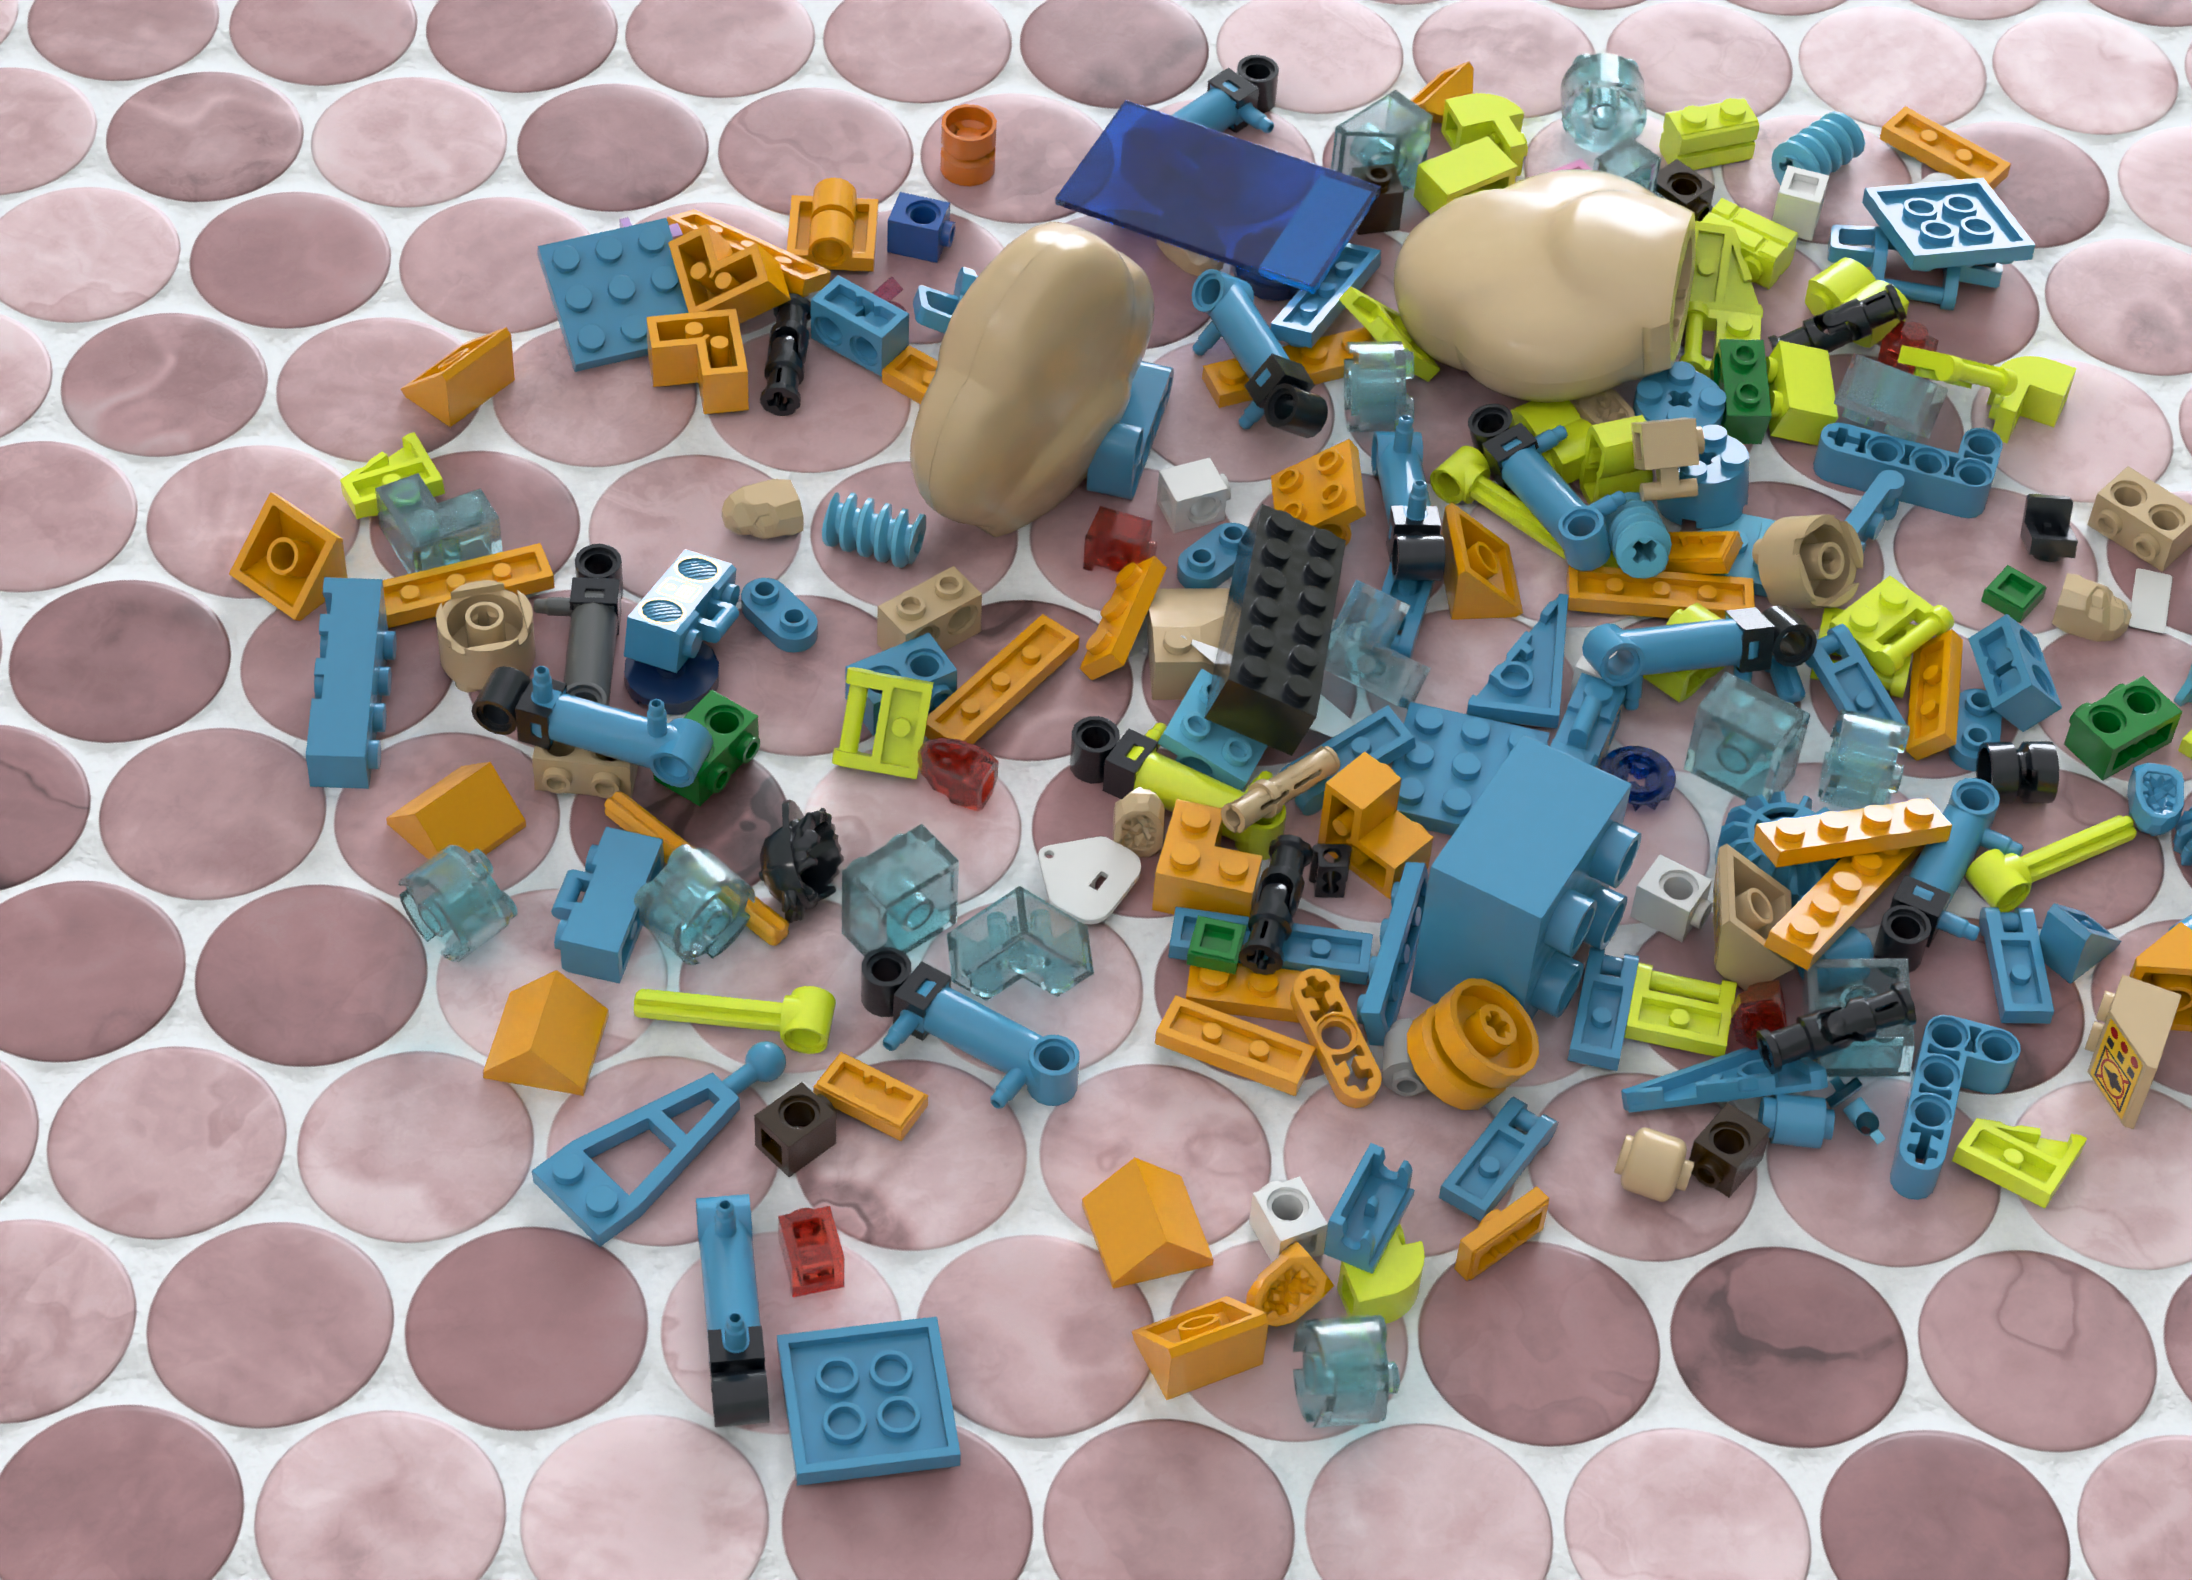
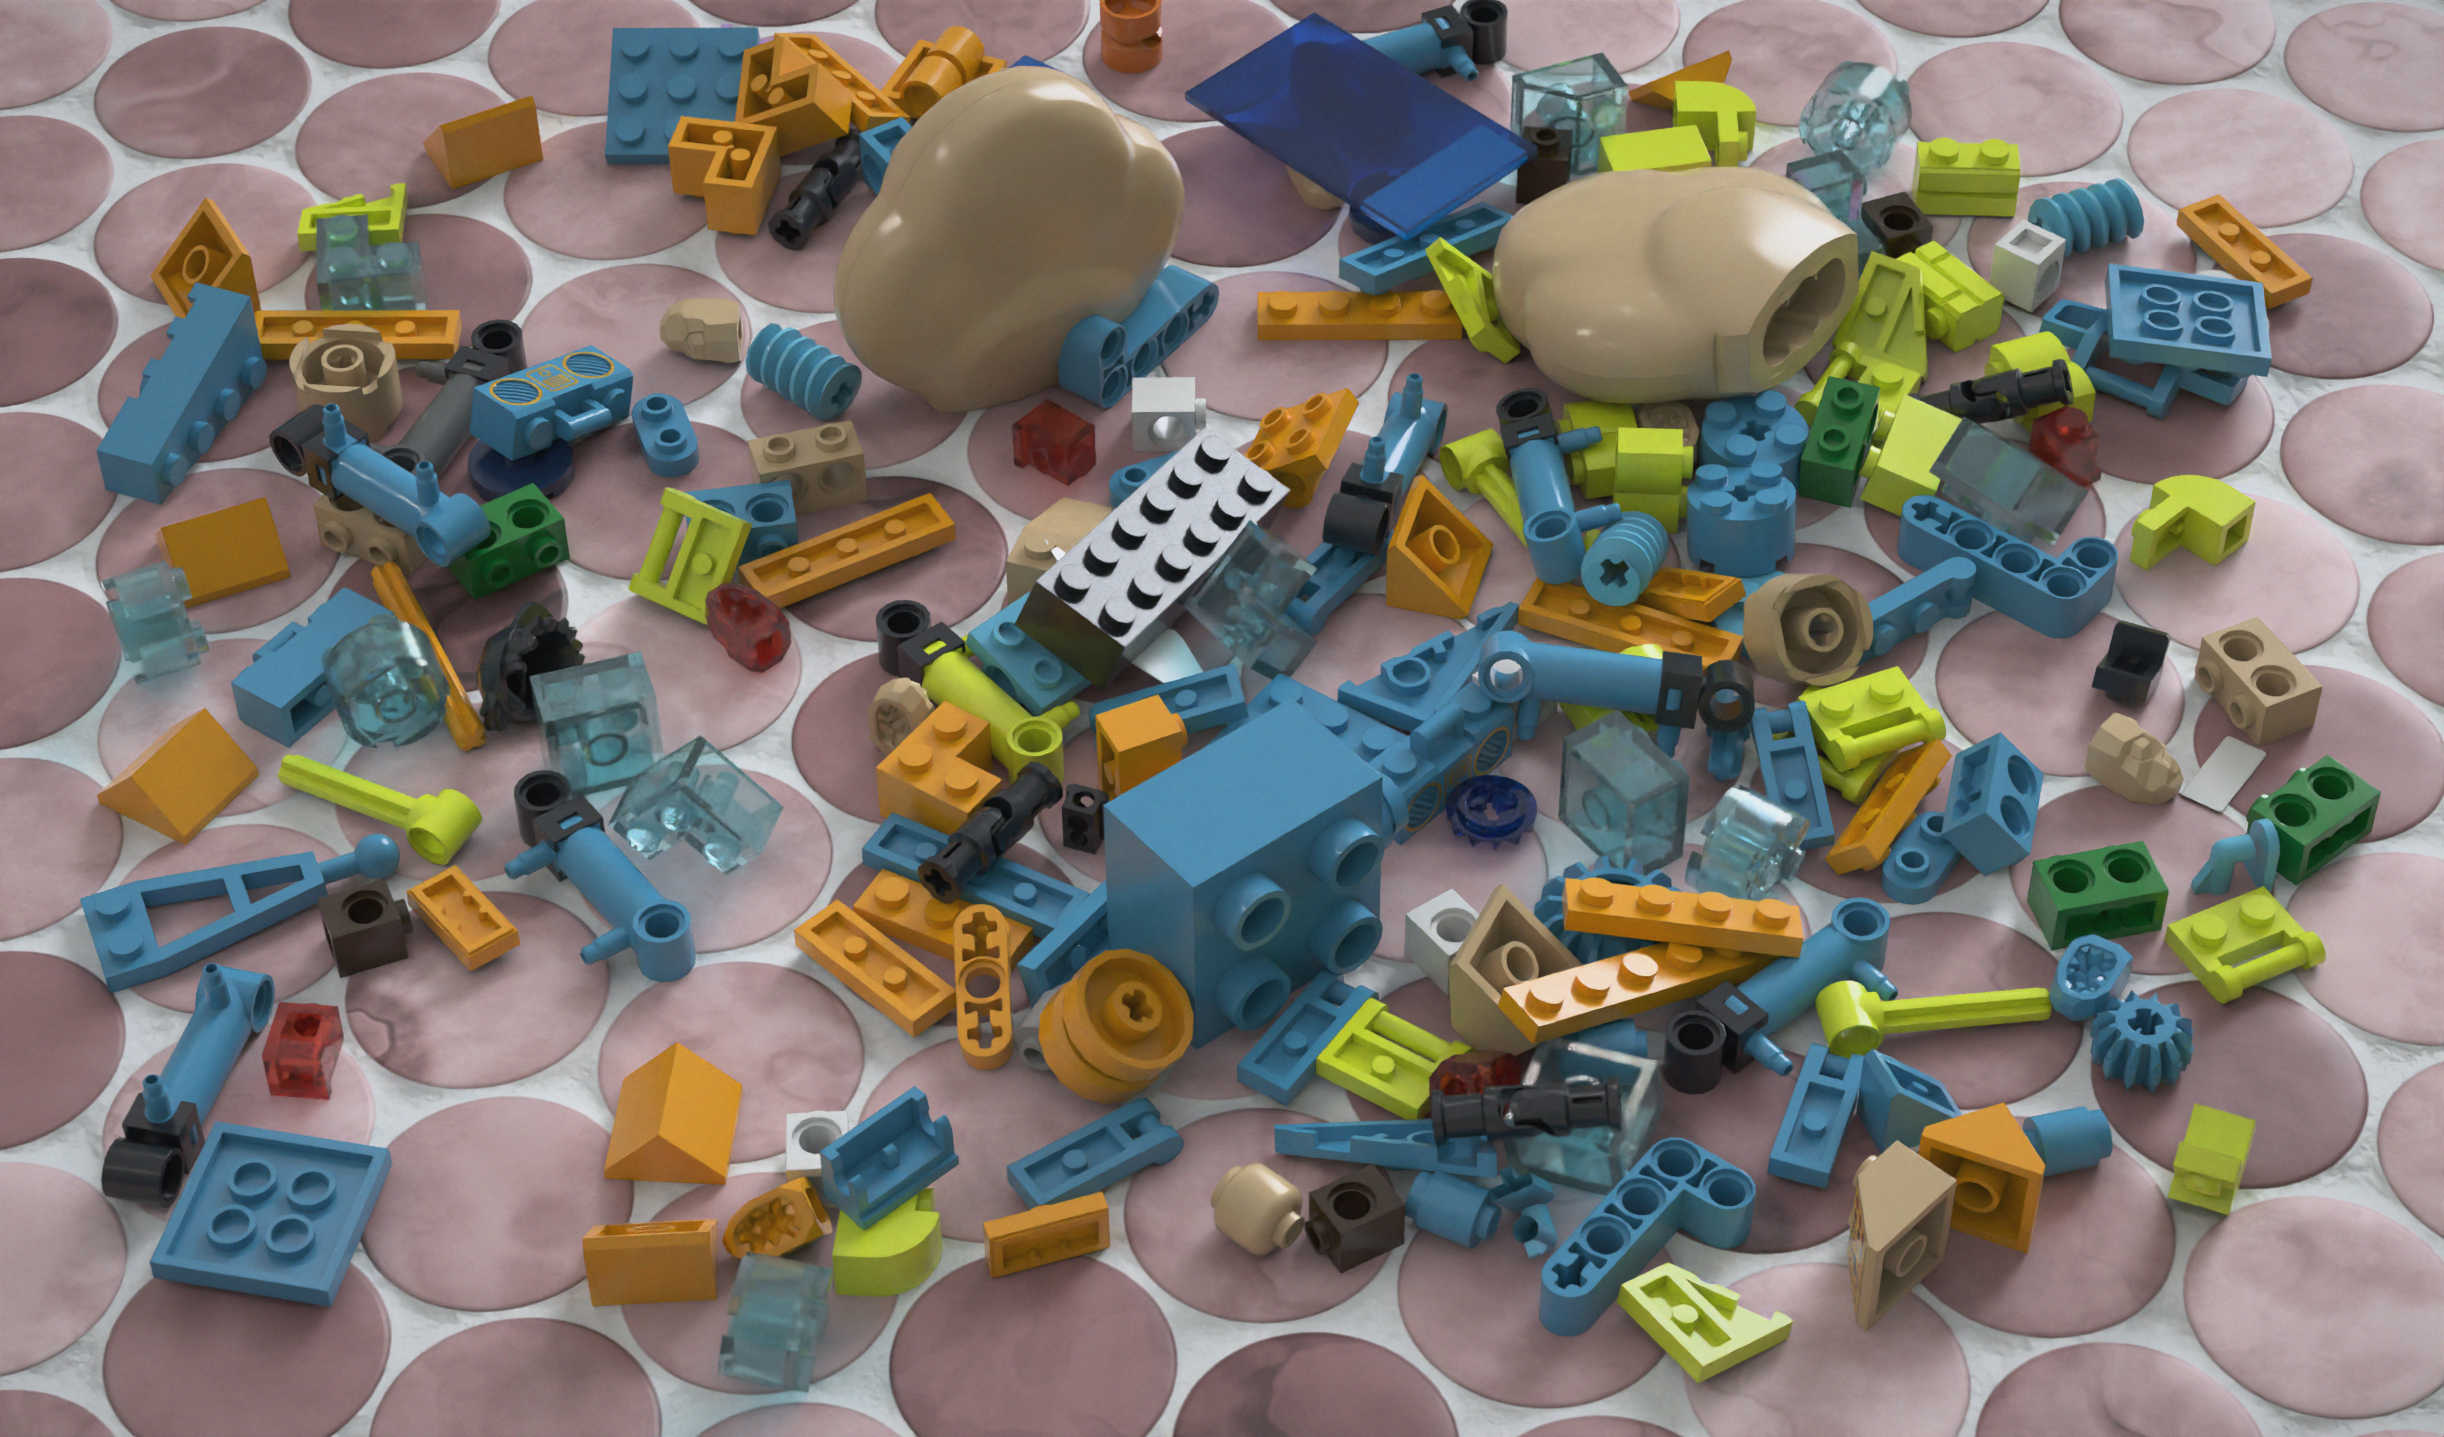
camera: 25 degrees right, 5 degrees down
(1075, 869) = (806, 762): white piece -> none
(1122, 617) = (1012, 514): light orange plate -> none
(1216, 944) = (900, 856): green tile -> none
(1267, 797) = (1038, 720): tan pin -> none
(1275, 382) = (1313, 320): piece -> none
(1377, 385) = (1424, 339): clear light blue brick -> none
(1665, 447) = (1682, 464): tan brick -> none
(1958, 371) = (2104, 471): neon yellow plate -> none
(2013, 593) = (2056, 727): green tile -> none
(2020, 772) = (1915, 906): black wheel -> none

